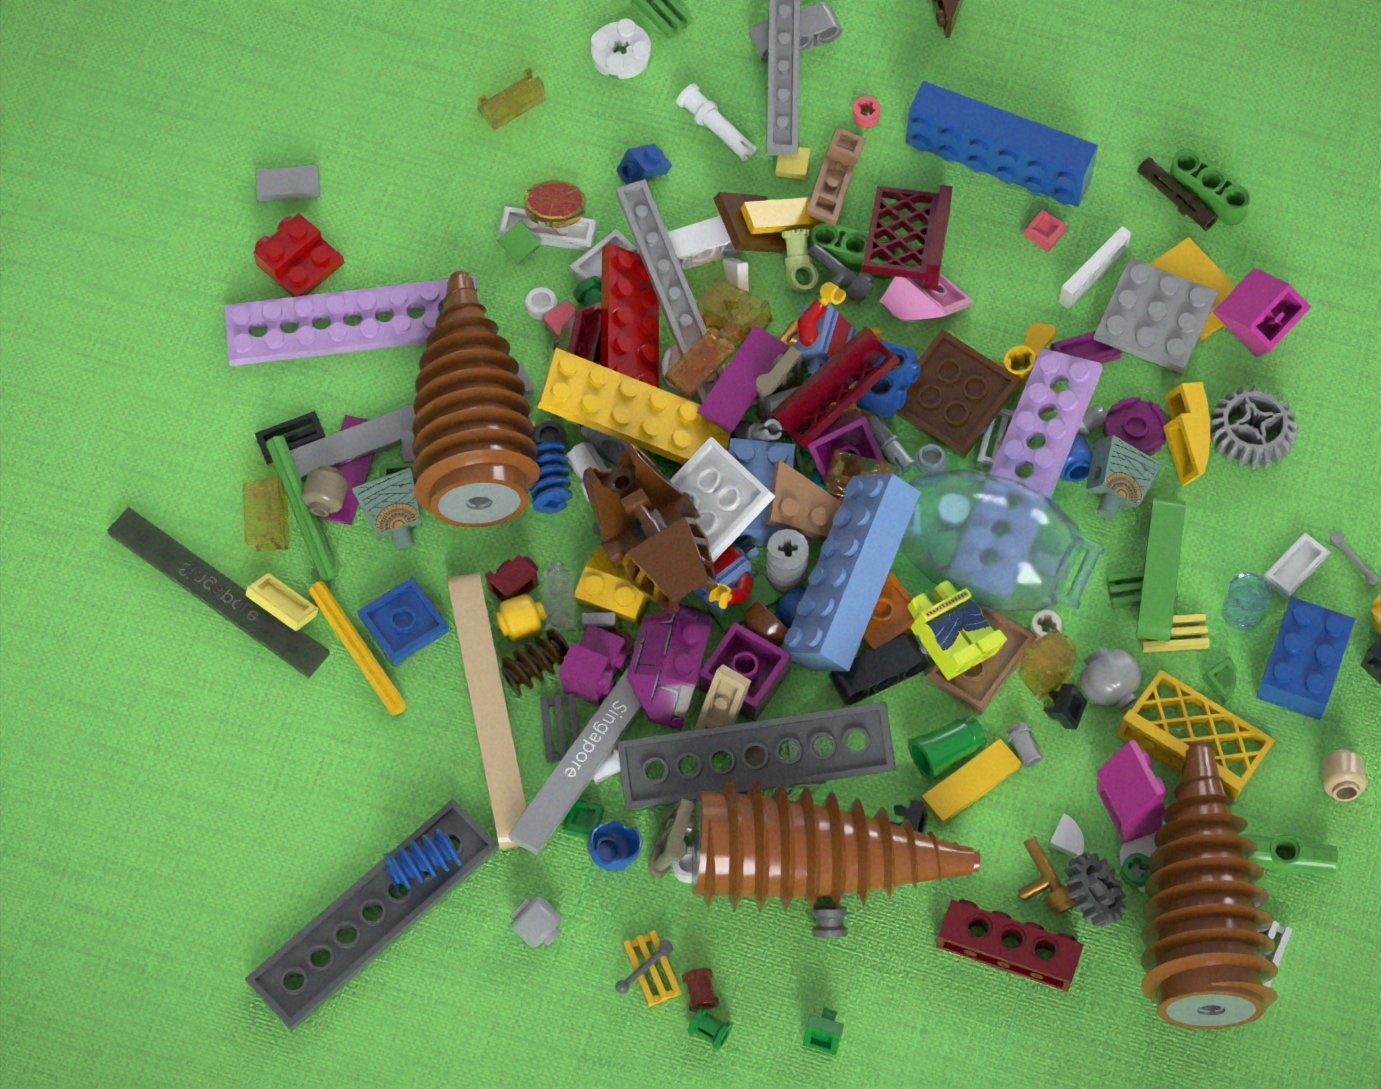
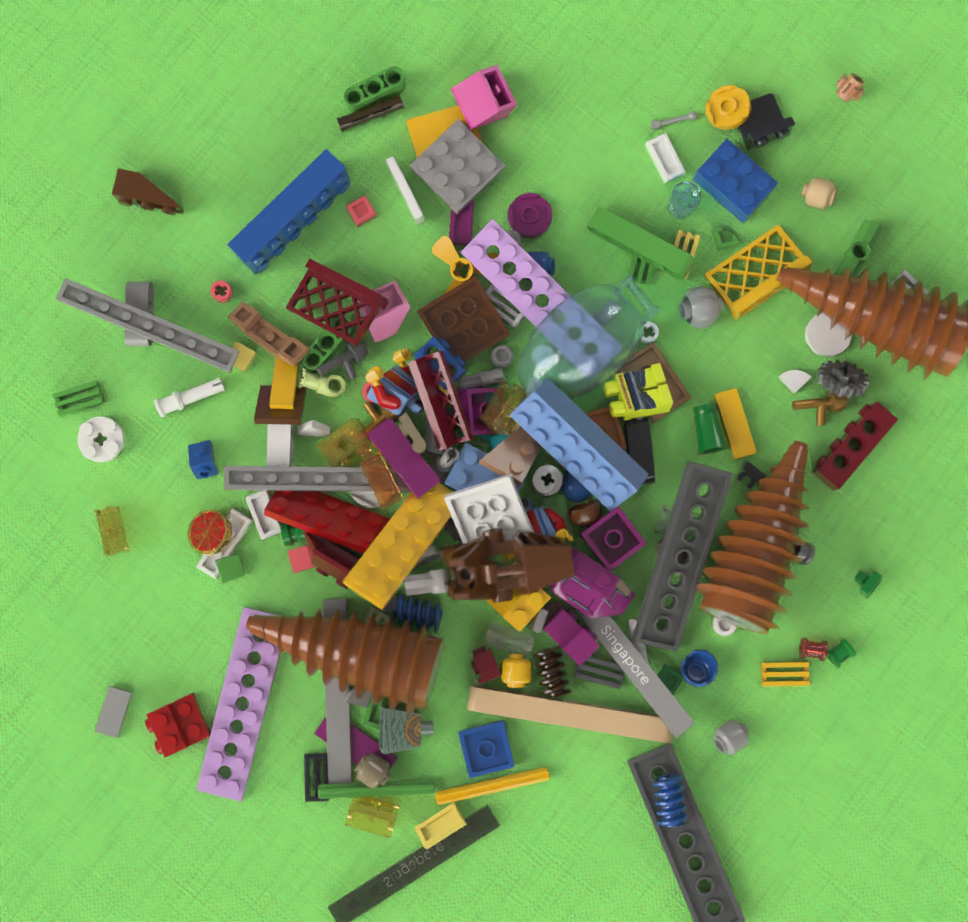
camera: 65 degrees left, 20 degrees up
(540, 302) = (281, 569): white tile -> none
(665, 949) = (779, 662): dark grey hinge -> none
(669, 841) = (707, 626): dark tan plate -> none
(723, 699) = (637, 564): tan plate -> none
(1024, 744) = (723, 380): light grey pin -> none
(1047, 663) = (682, 343): clear yellow brick -> none
(1068, 706) = (710, 342): black tile -> none
(1119, 475) = (567, 241): sand green torso -> none
(1129, 876) = (829, 350): green bush -> none
(1131, 793) = (790, 328): dark pink slope -> none
(1188, 430) = (550, 183): yellow slope -> none
(1249, 443) = (552, 140): light grey gear -> none

